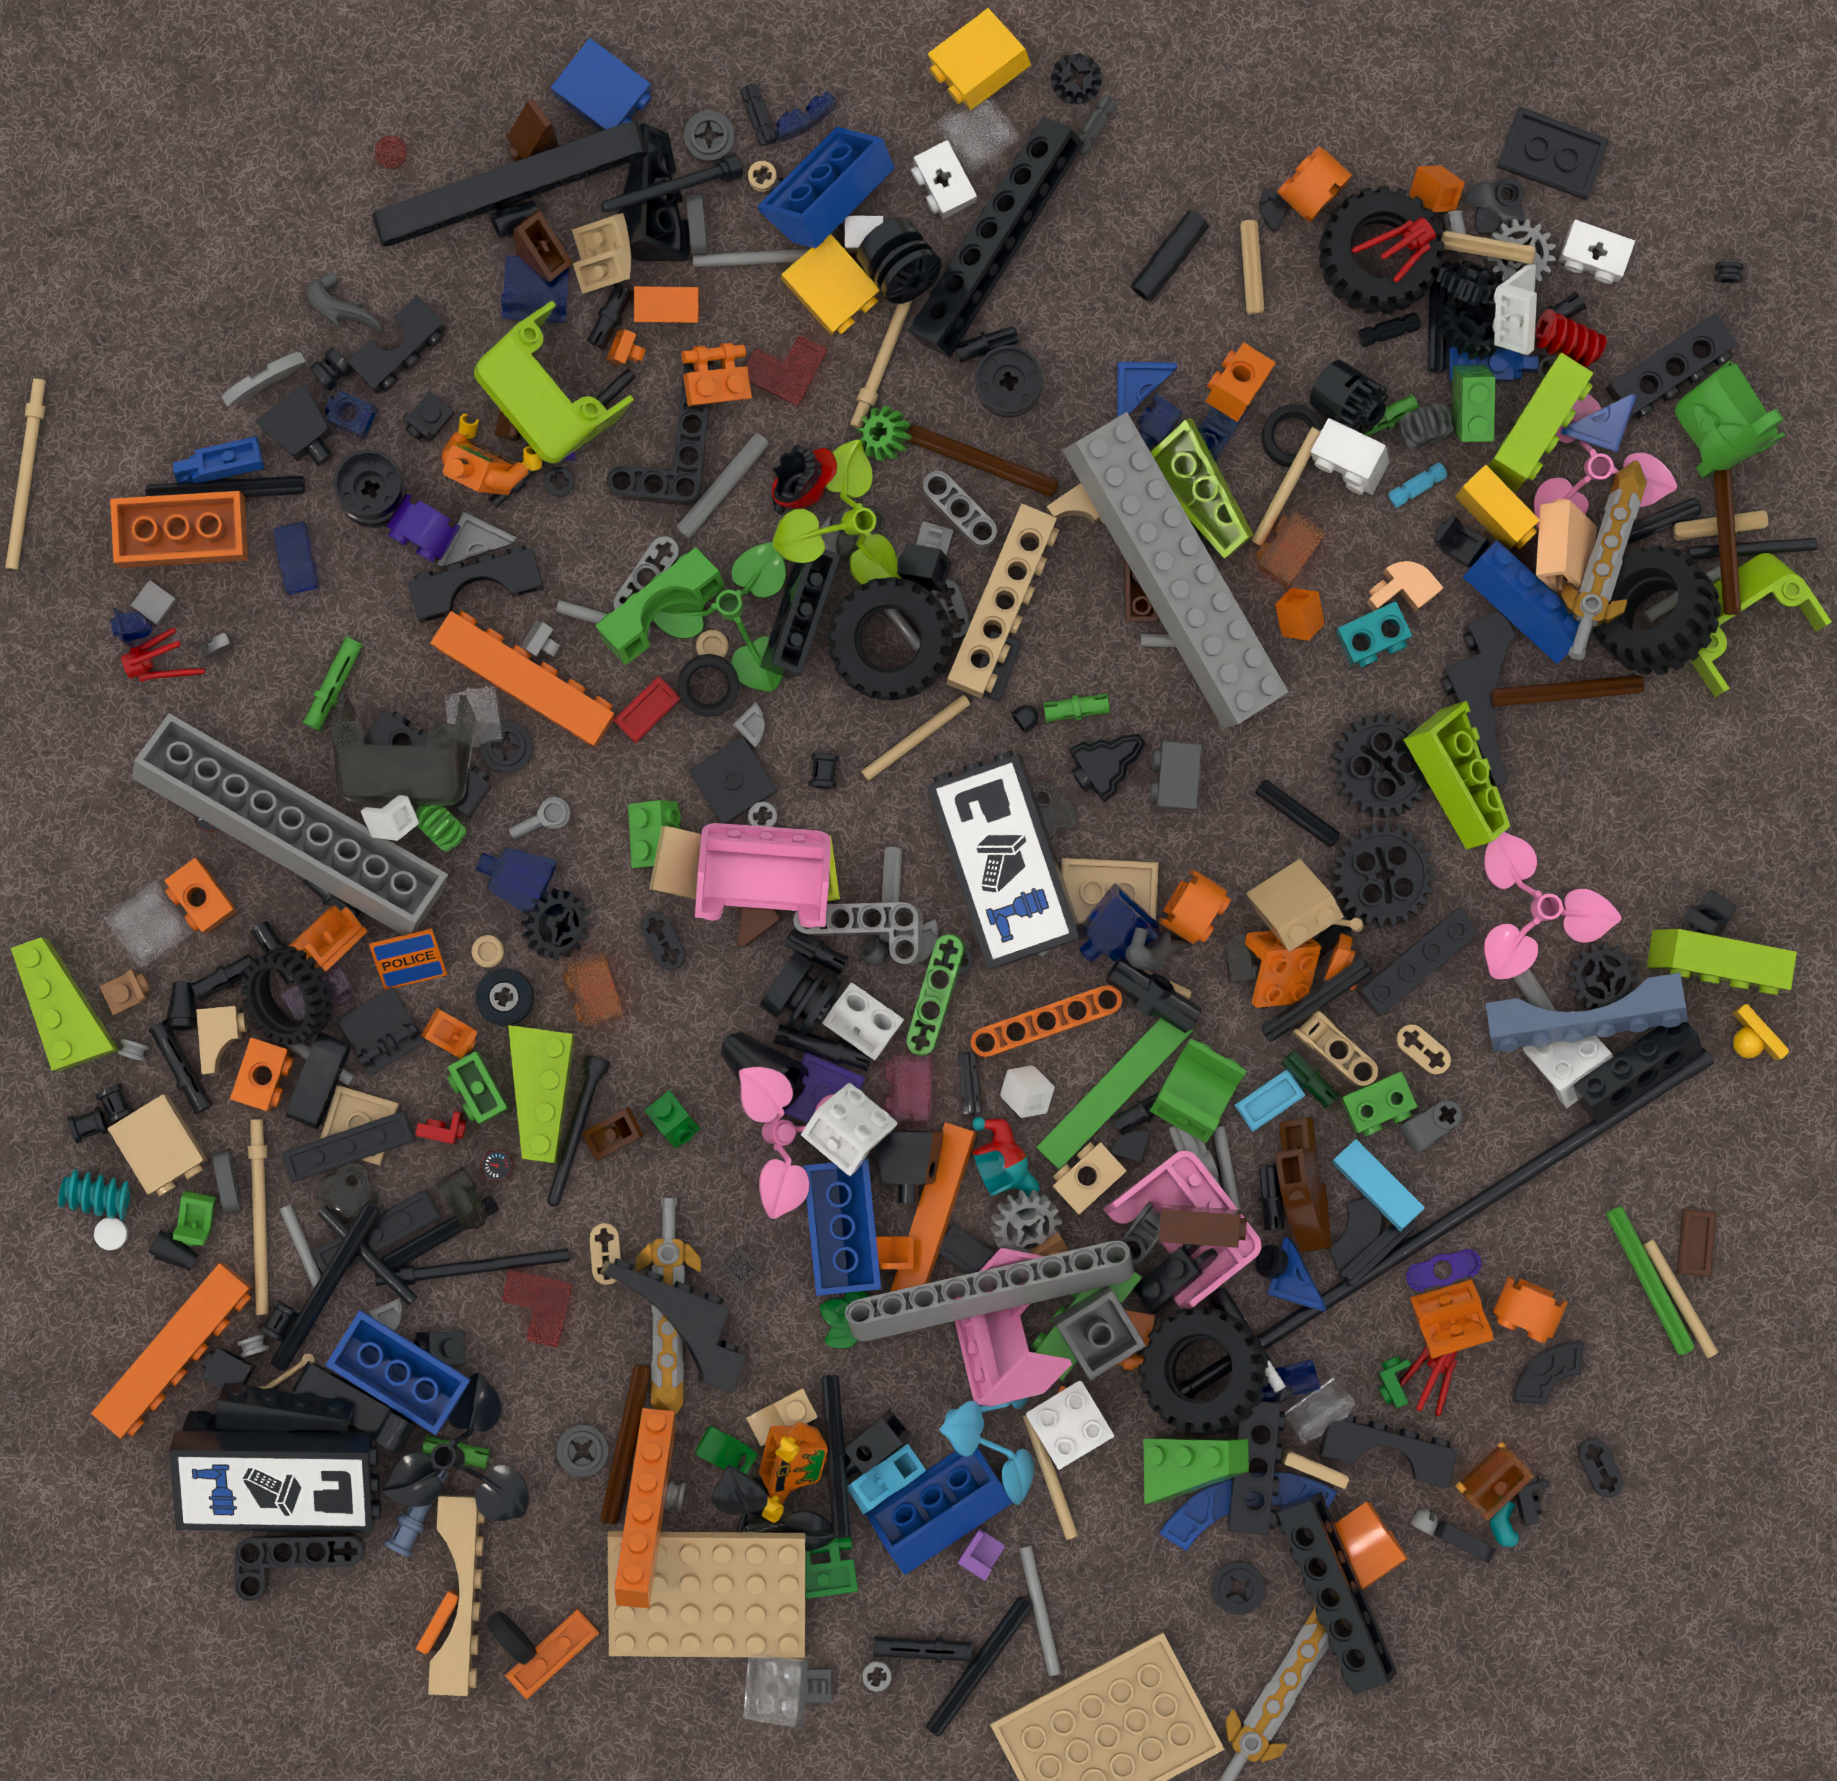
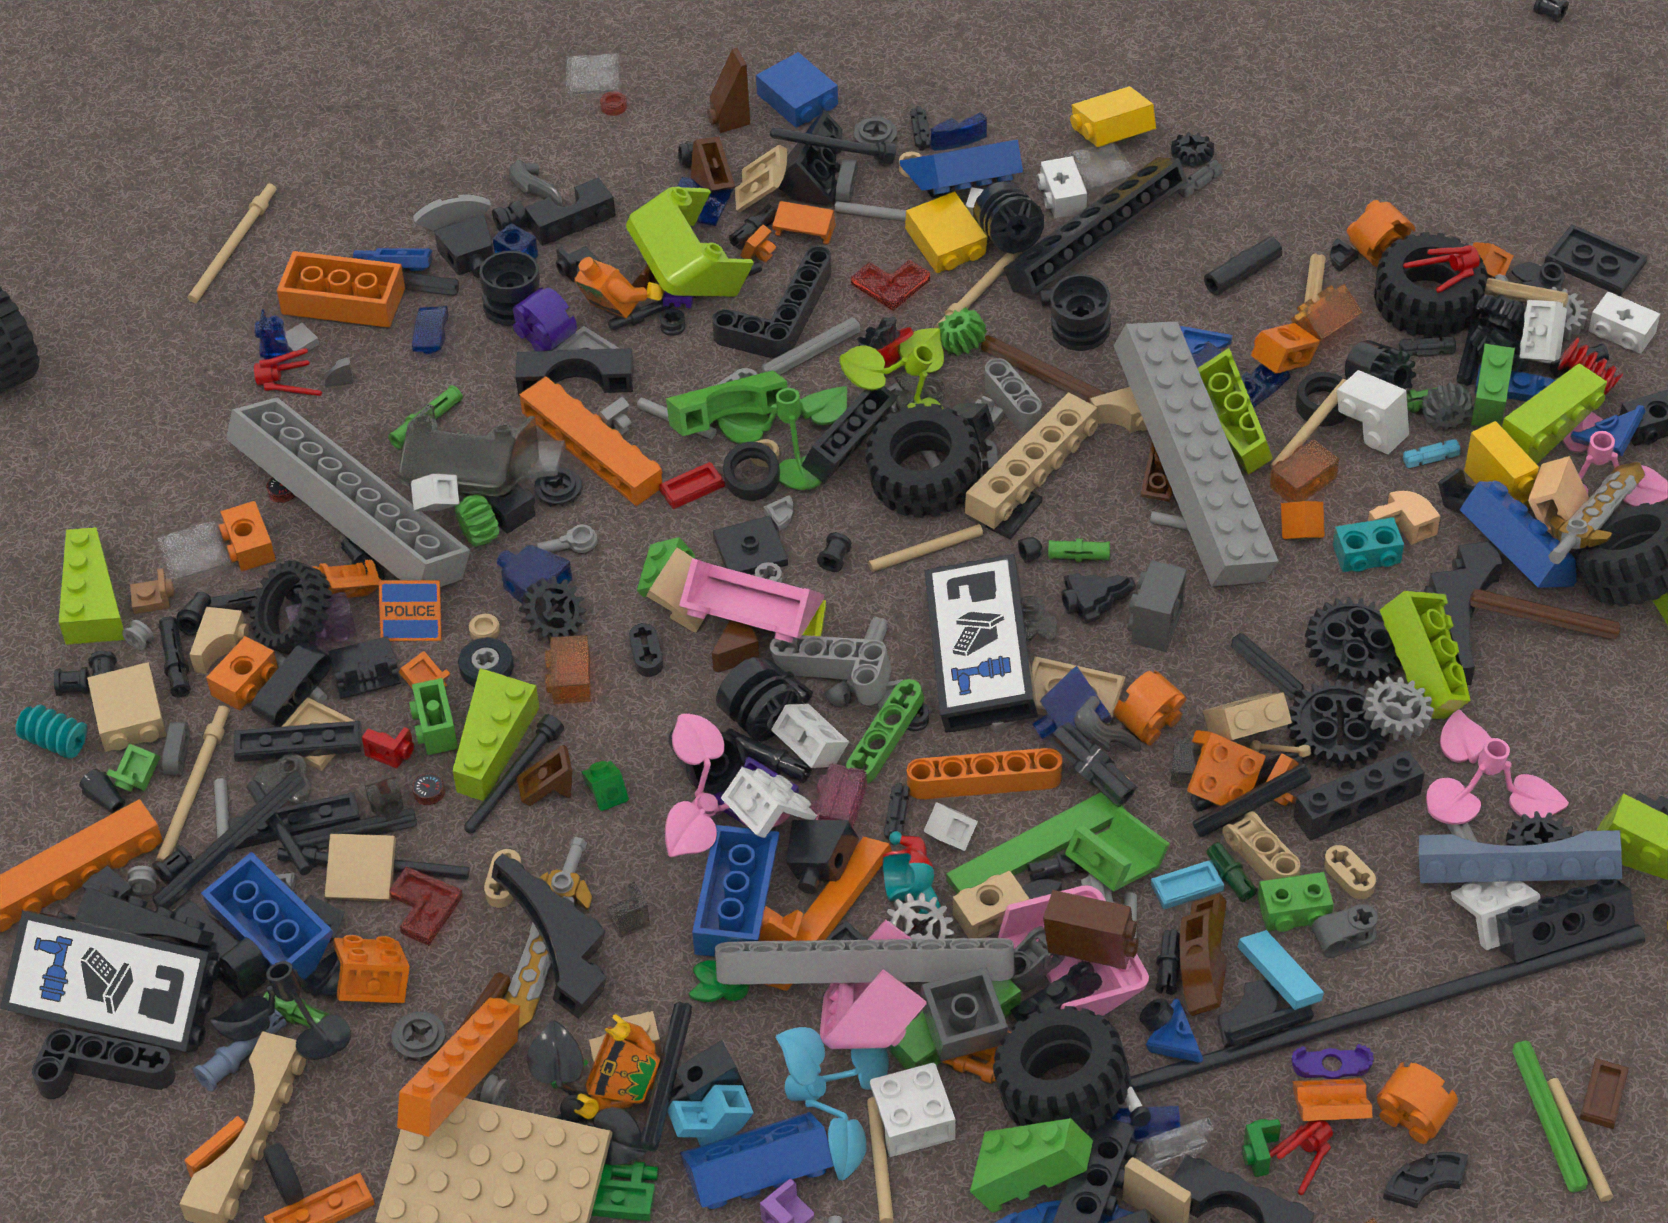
camera: 20 degrees right, 35 degrees down
(111, 1234) = (53, 770): white tile -> none
(353, 112) = (592, 75): none -> clear plate
(464, 1281) = (360, 867): none -> tan tile
(510, 184) = (723, 120): black beam -> none
(514, 1393) = (371, 969): none -> orange bracket
(717, 385) = (826, 269): orange plate -> none
(1275, 319) = (1328, 313): none -> clear orange brick
(1435, 847) = (1398, 708): none -> light grey gear

